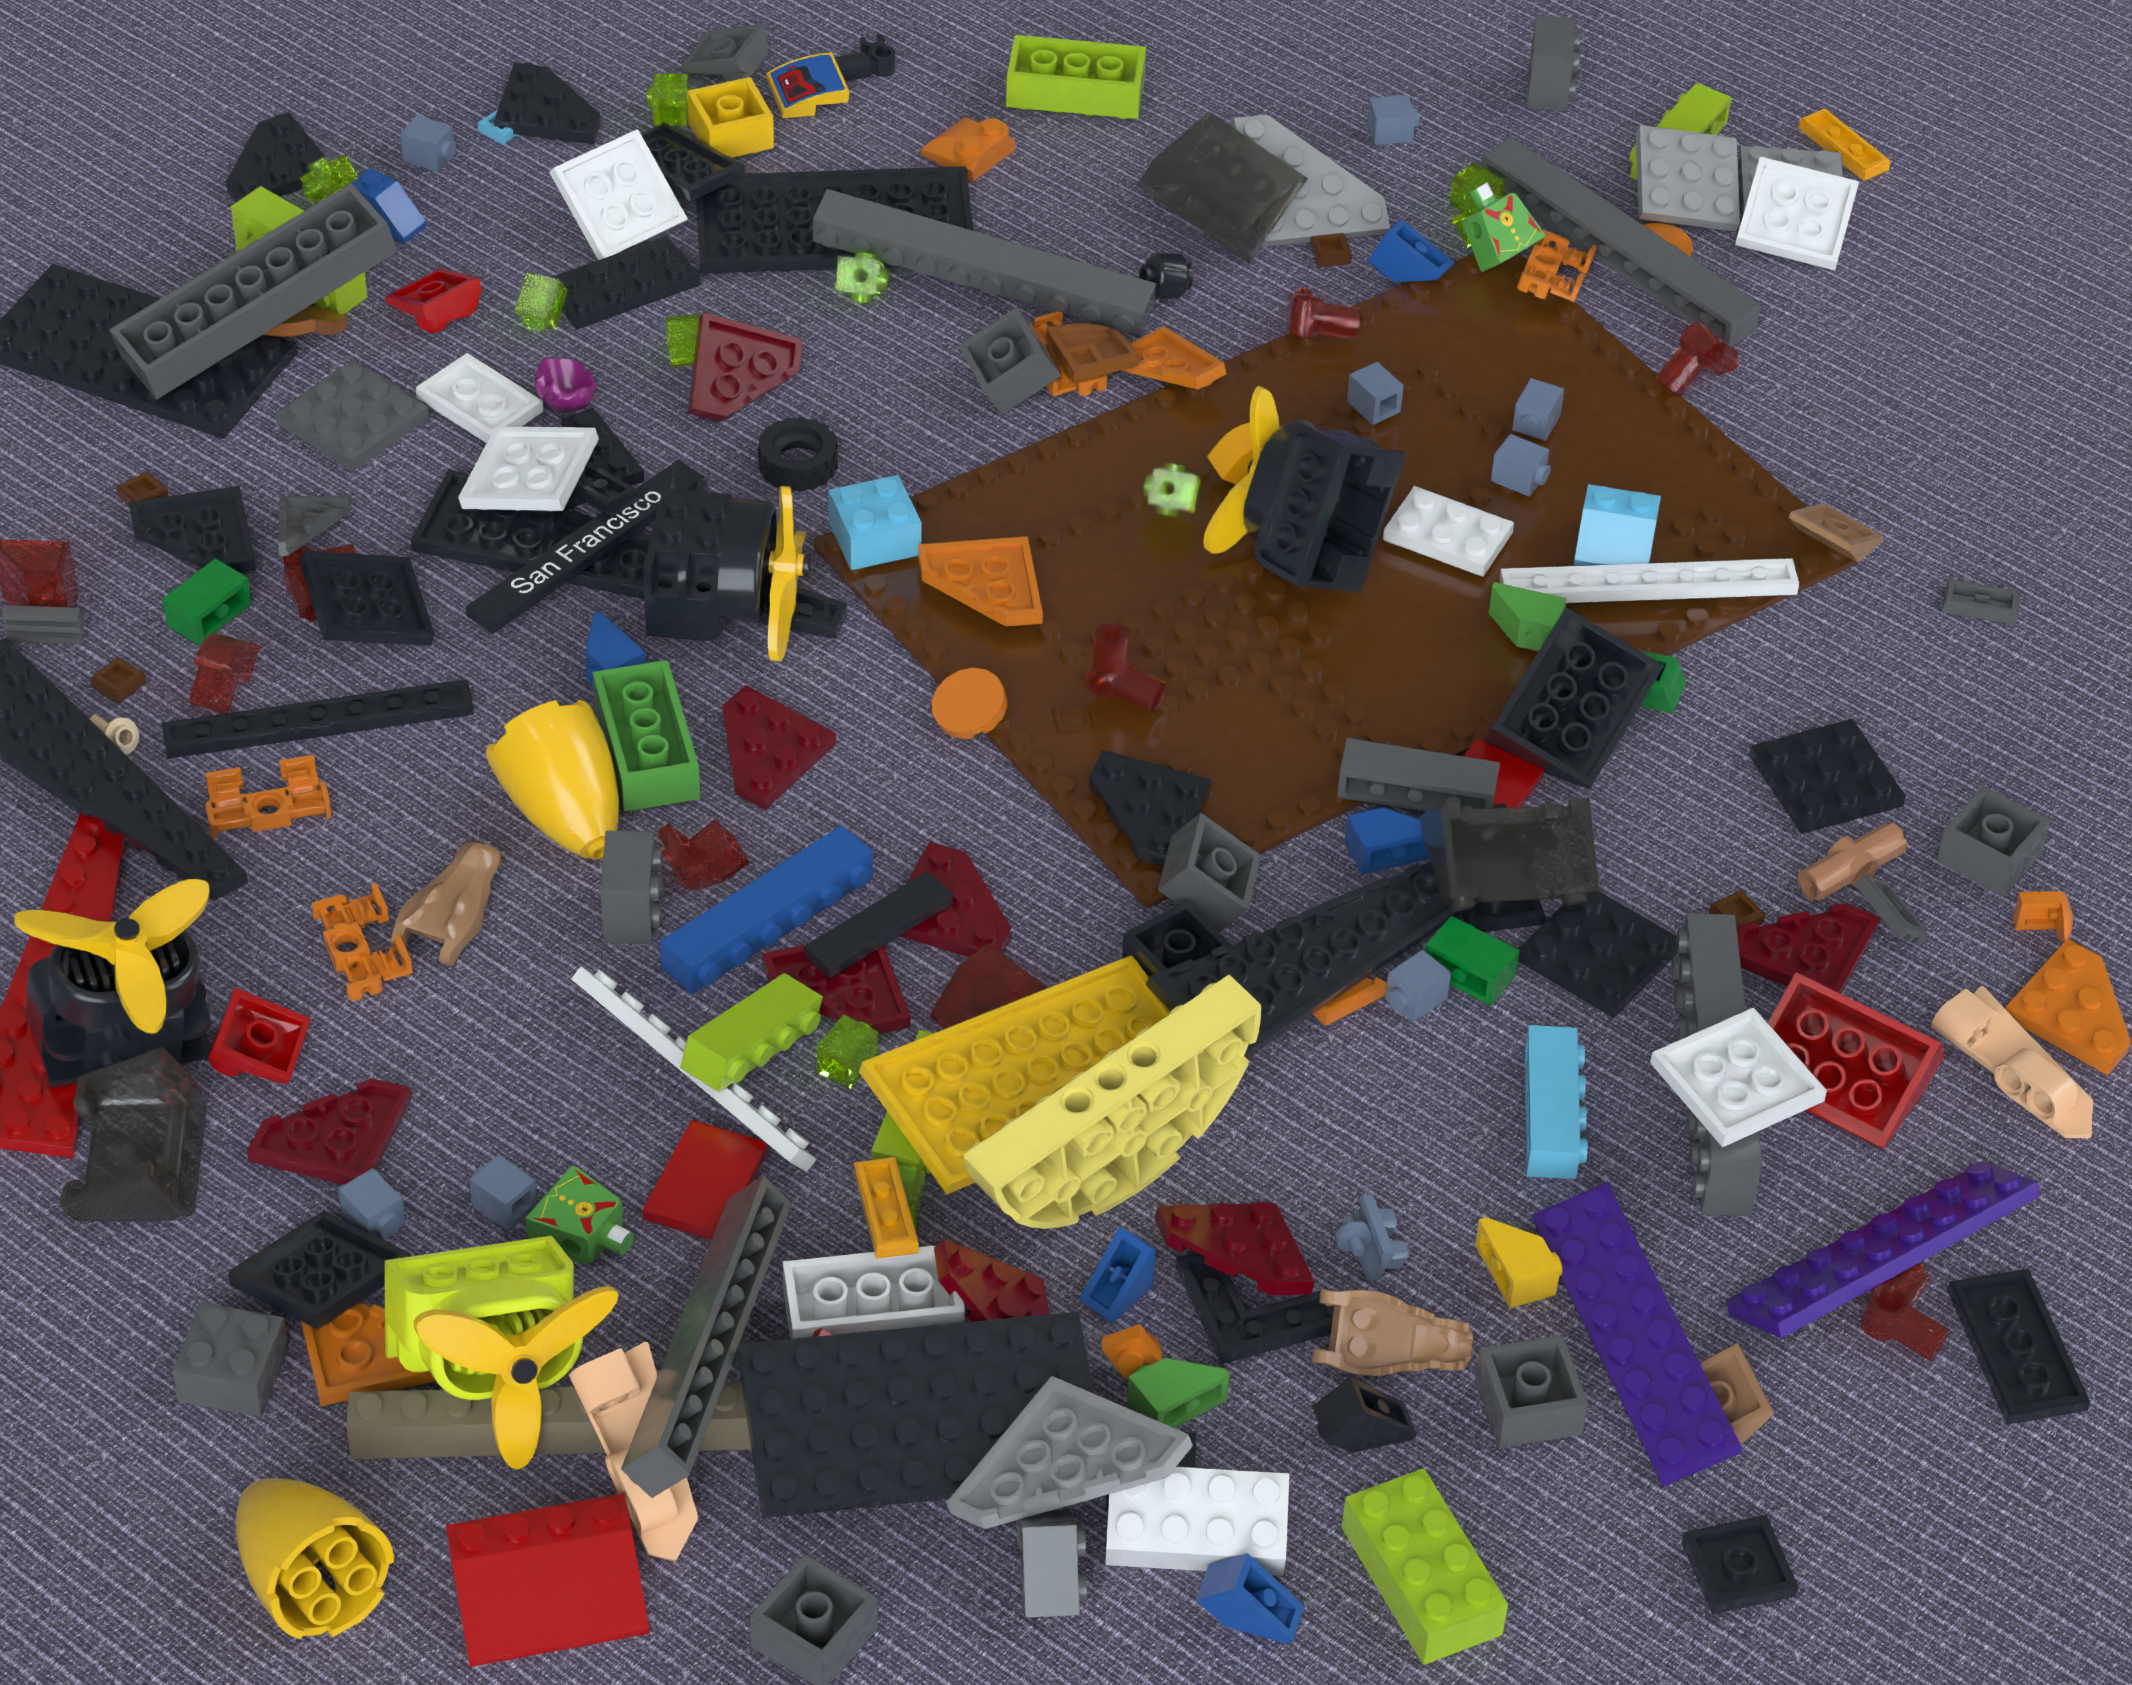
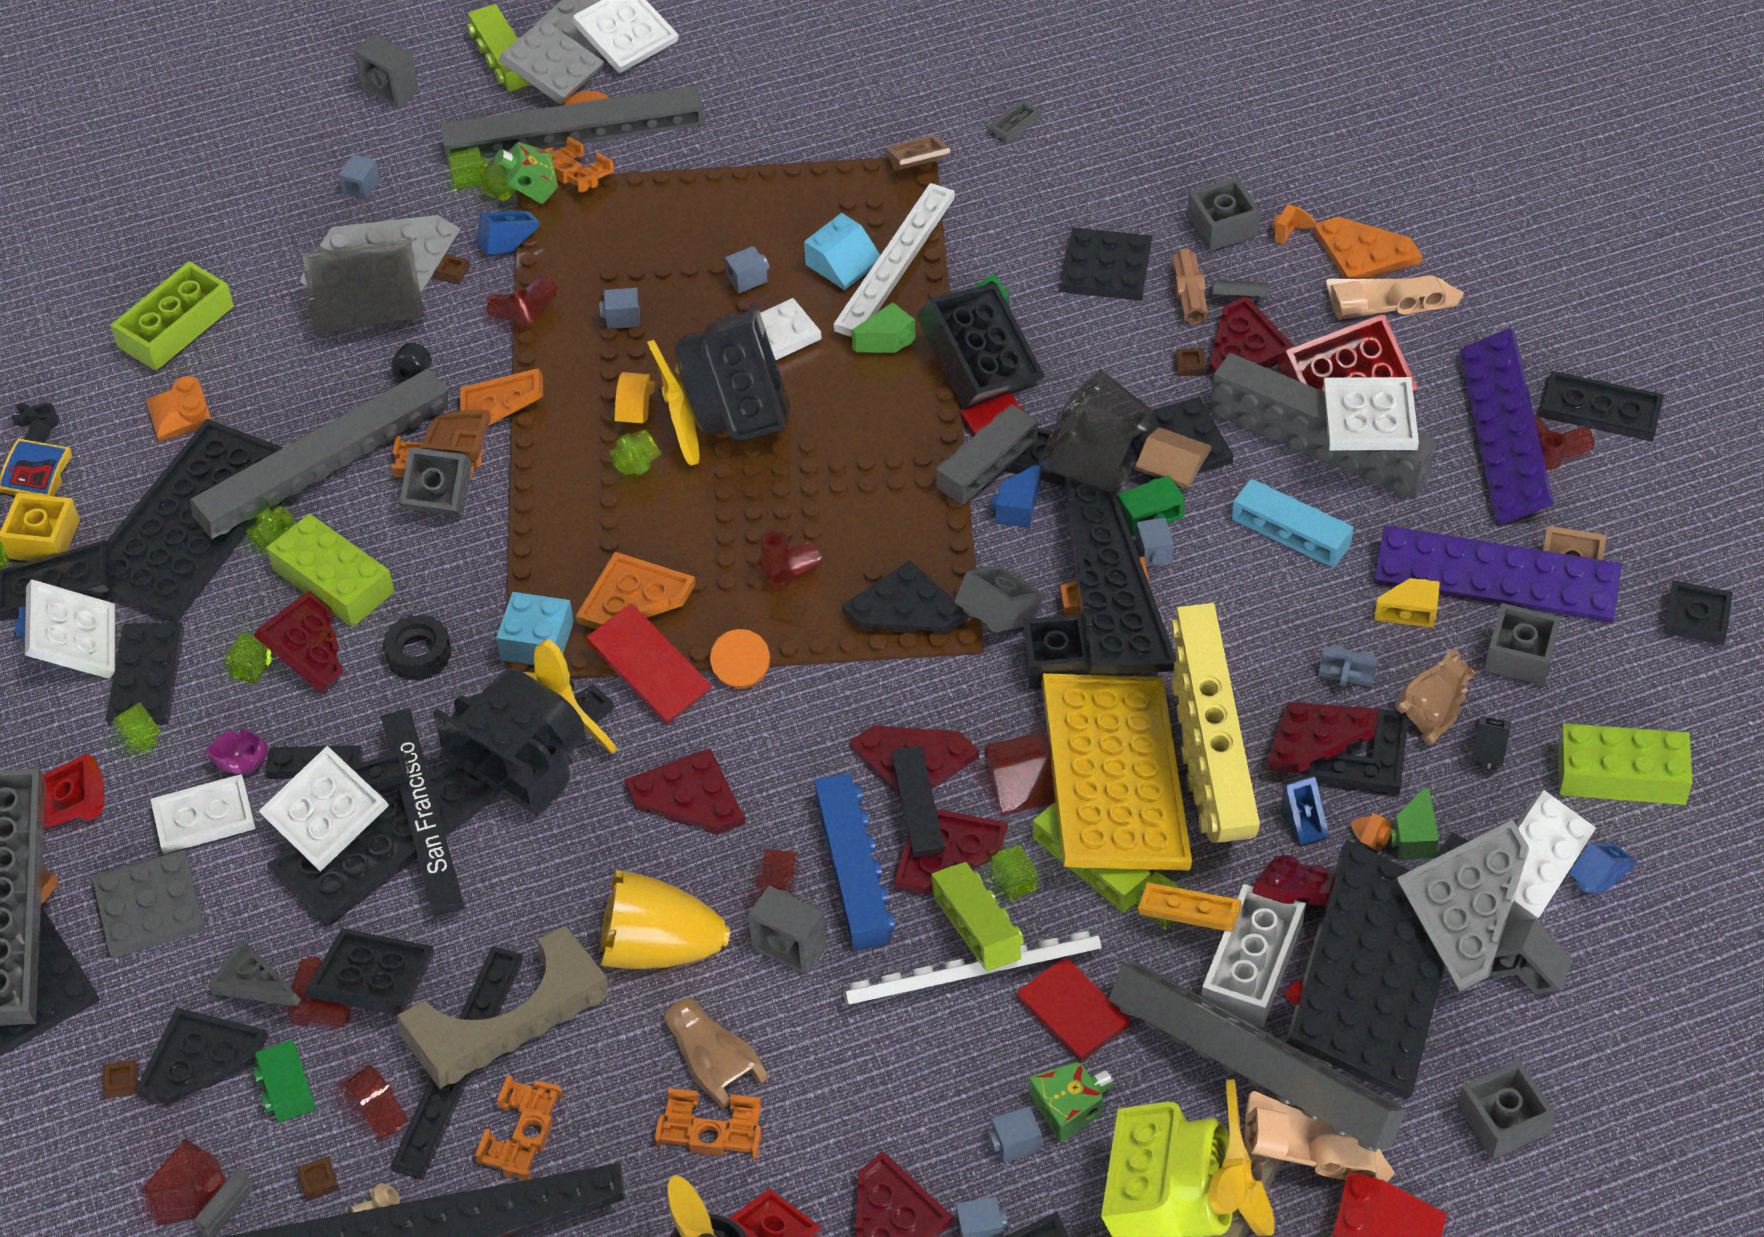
camera: 55 degrees left, 5 degrees up
(445, 752) = (457, 1046): none -> dark tan arch
(609, 648) = (537, 846): blue slope -> none
(646, 735) = (639, 847): bright green brick -> none
(842, 344) = (331, 568): none -> lime brick
(903, 632) = (648, 663): none -> red tile
(1538, 409) = (702, 236): sand blue brick -> none
(1557, 945) = (1172, 455): none -> medium nougat slope
(1697, 351) = (718, 133): clear red piece -> none

